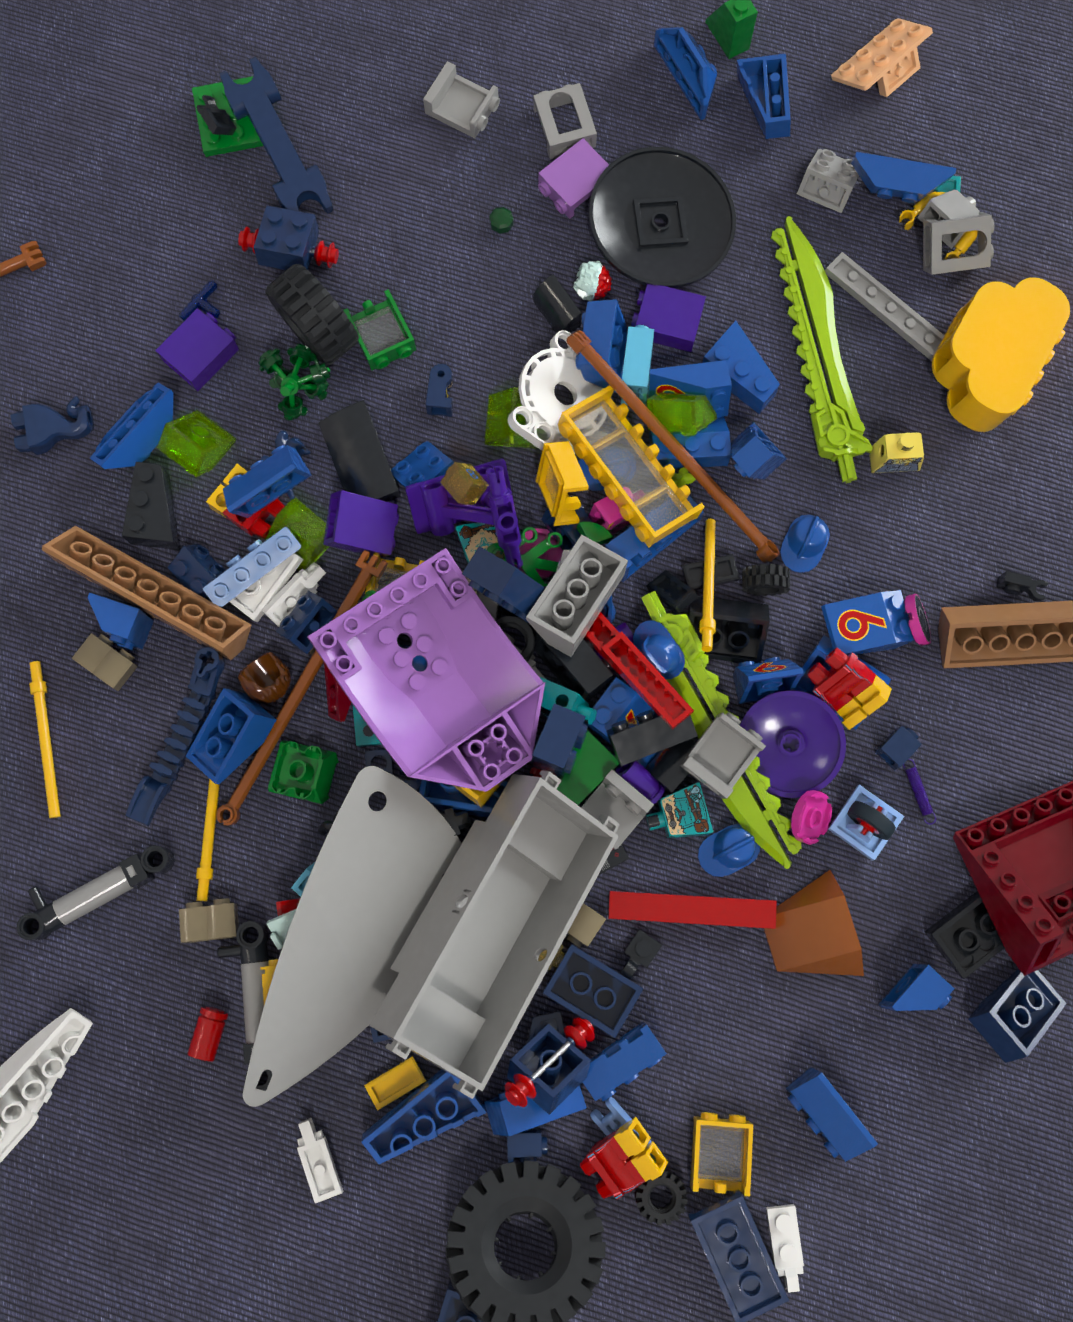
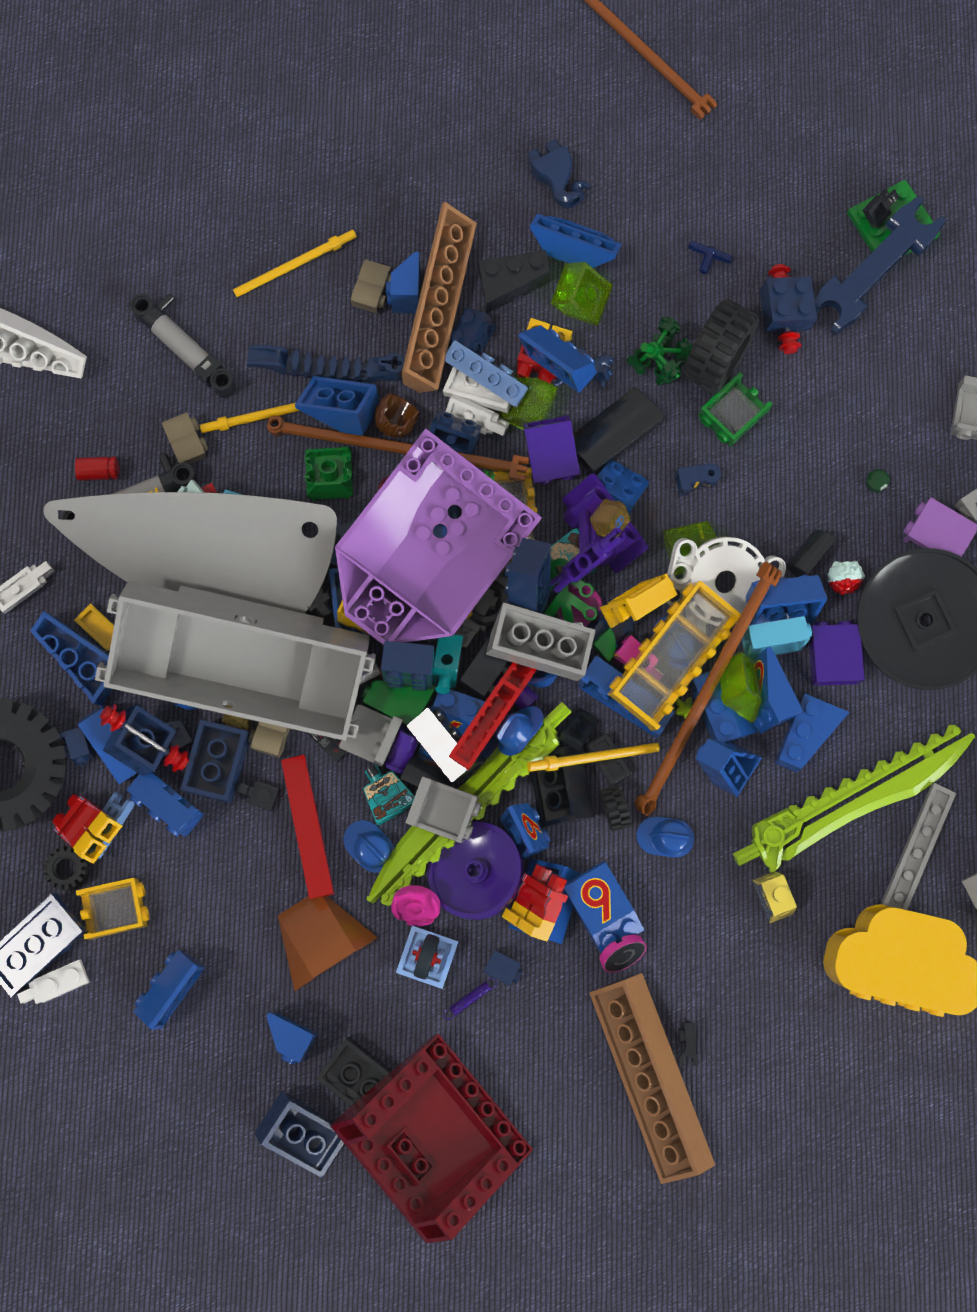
camera: 70 degrees right, 0 degrees up
(198, 349) = (665, 266): dark purple brick -> none

